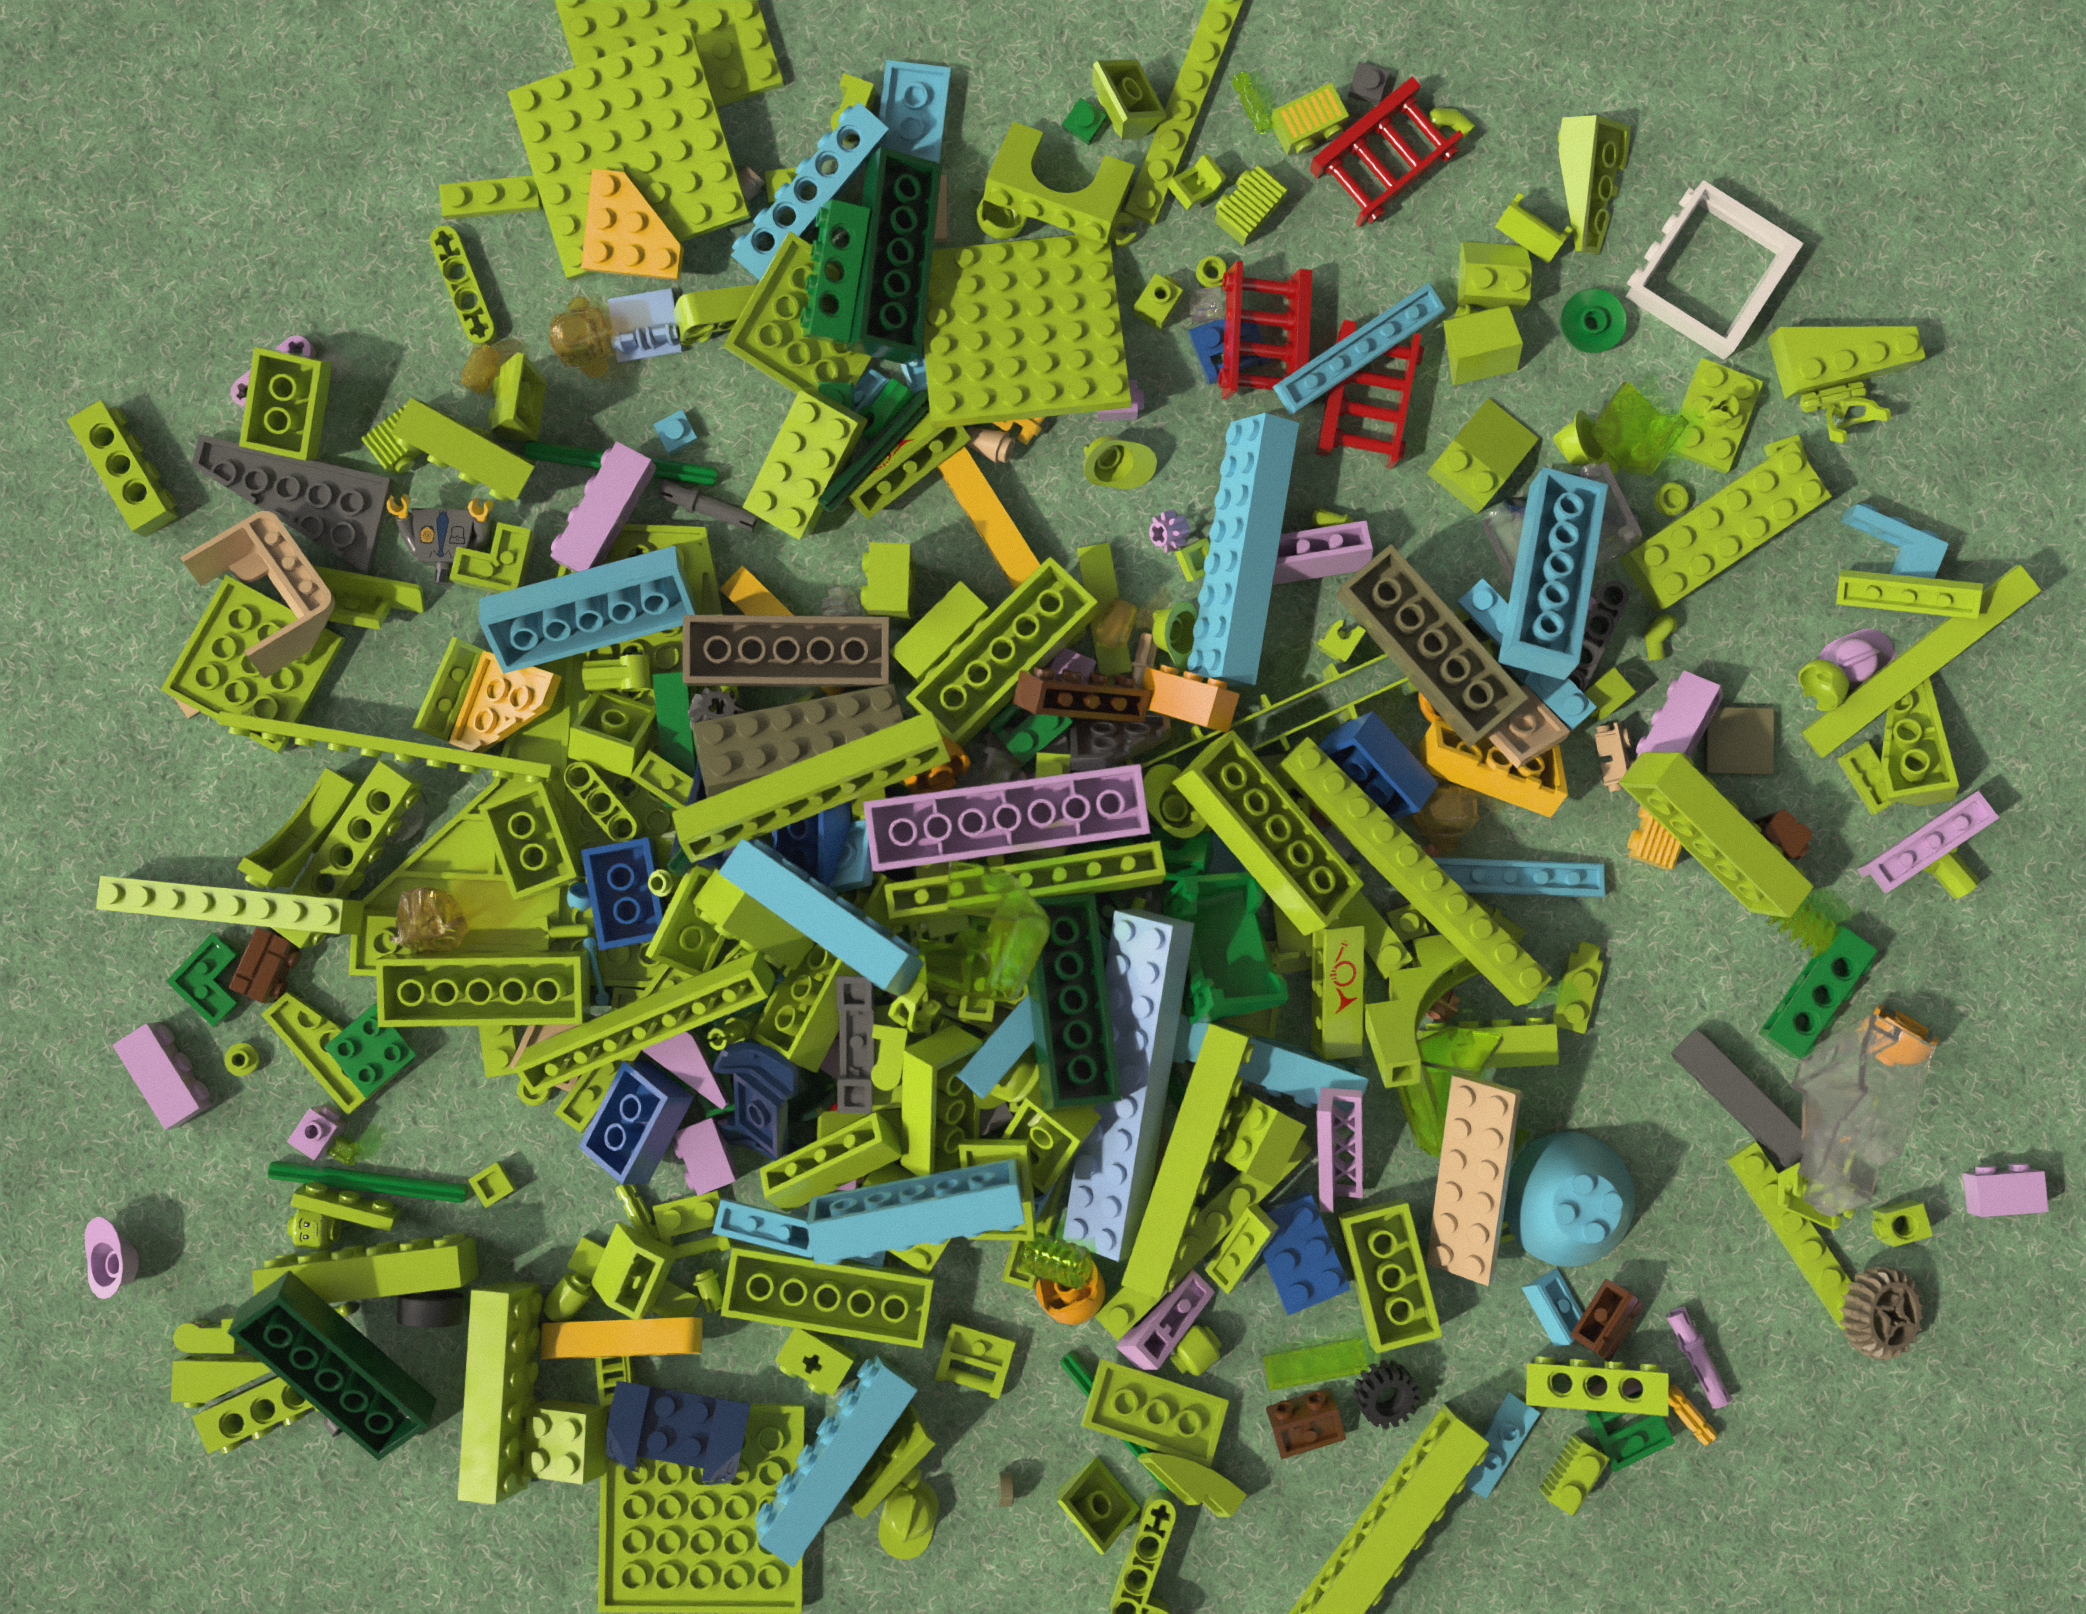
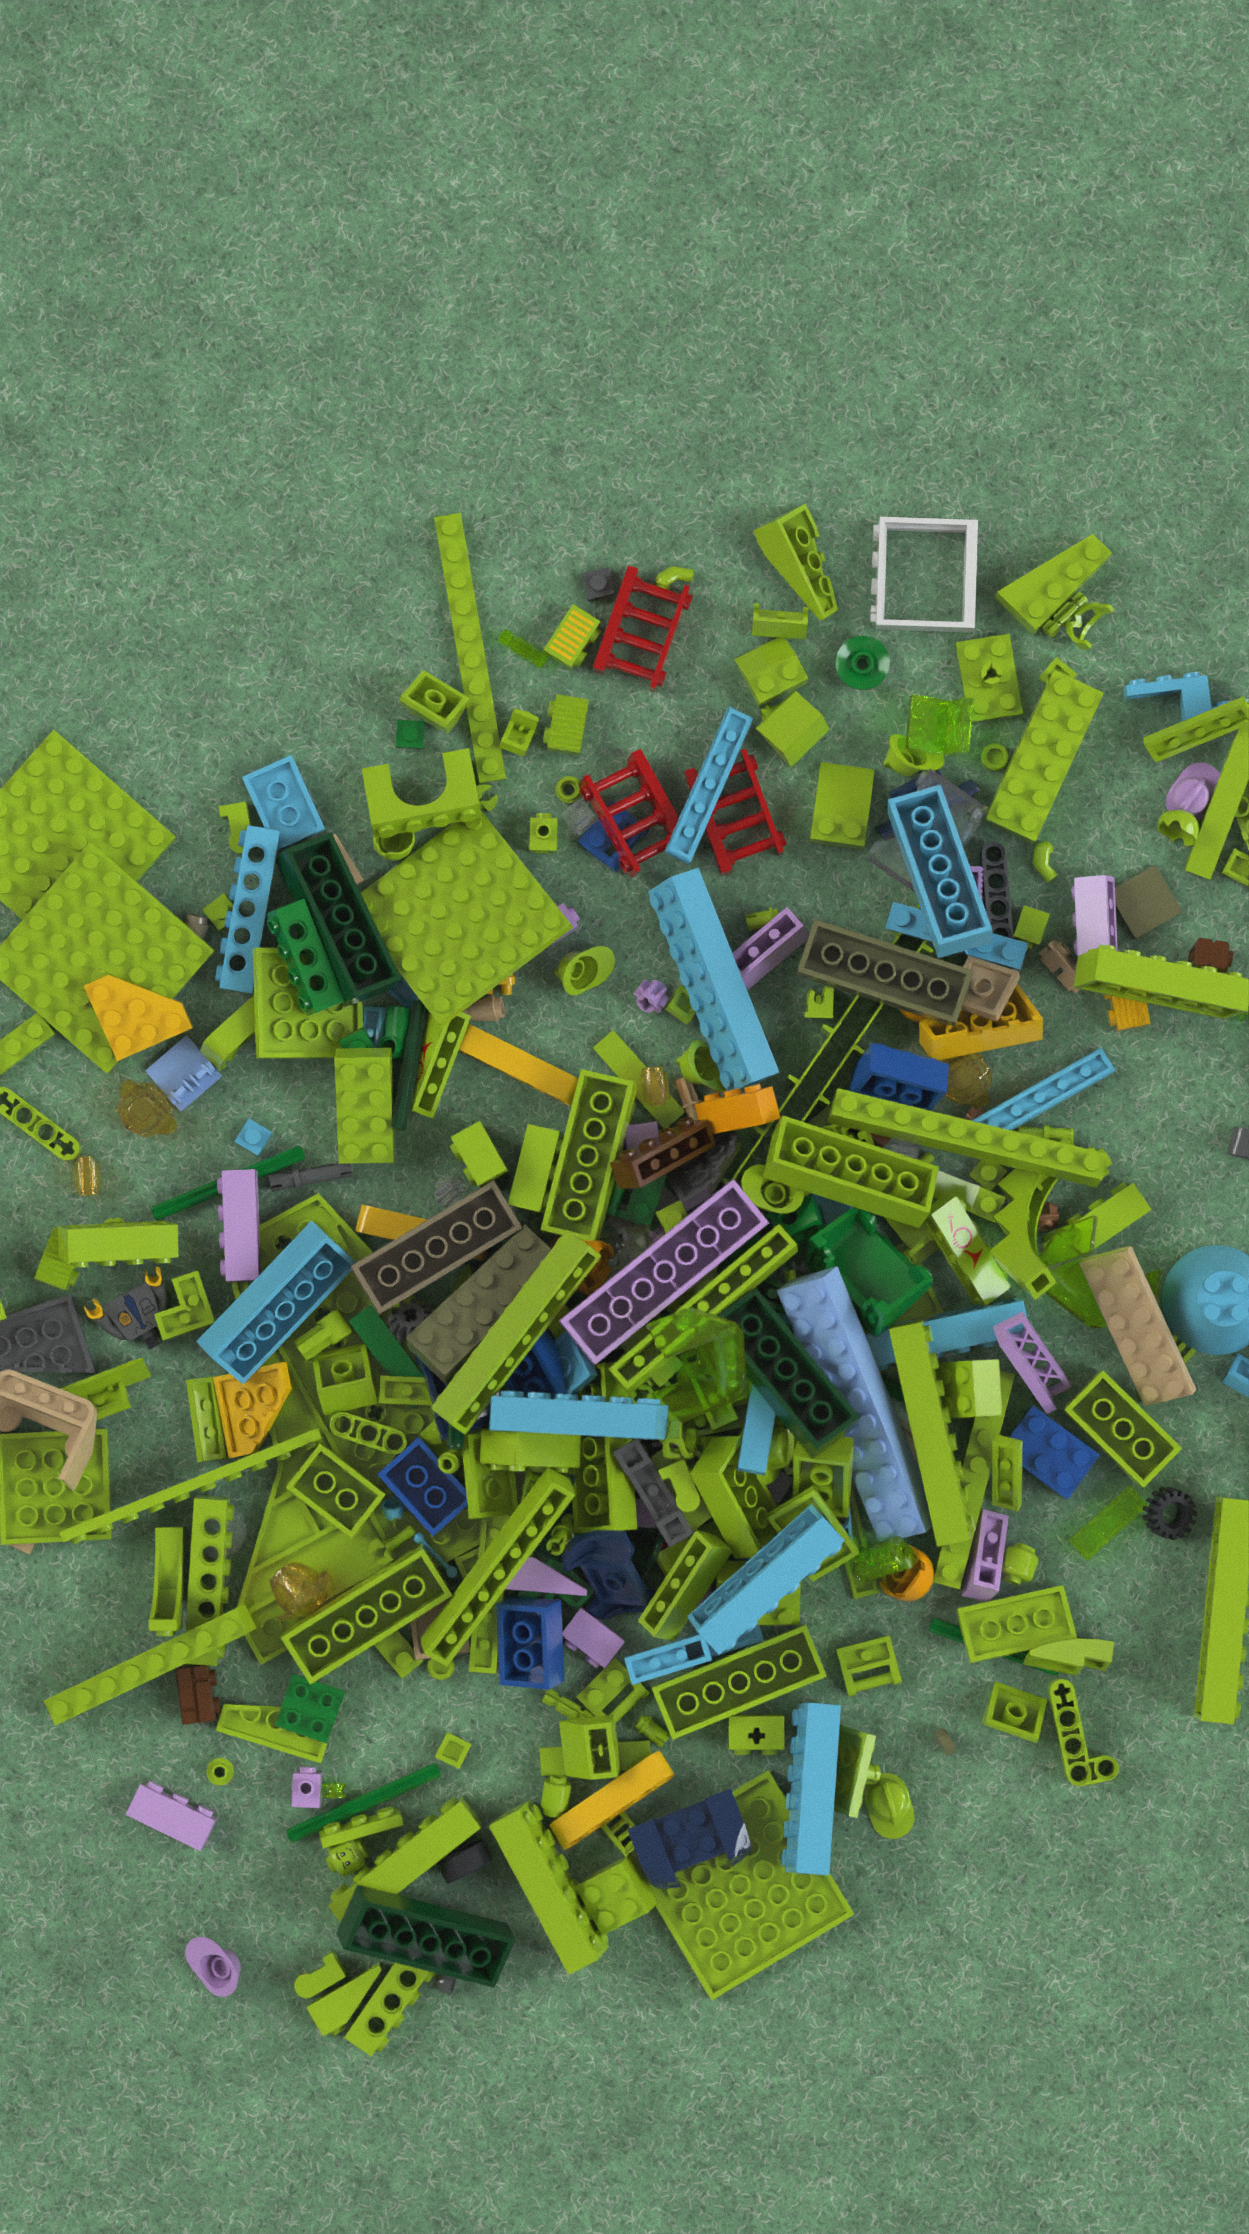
camera: 30 degrees left, 0 degrees up
(199, 983) = (155, 1735): green plate -> none
(518, 401) = (128, 1184): lime slope -> none
(1305, 1423) = (1126, 1568): reddish brown bracket -> none
(1578, 988) = (1135, 1147): lime hinge -> none

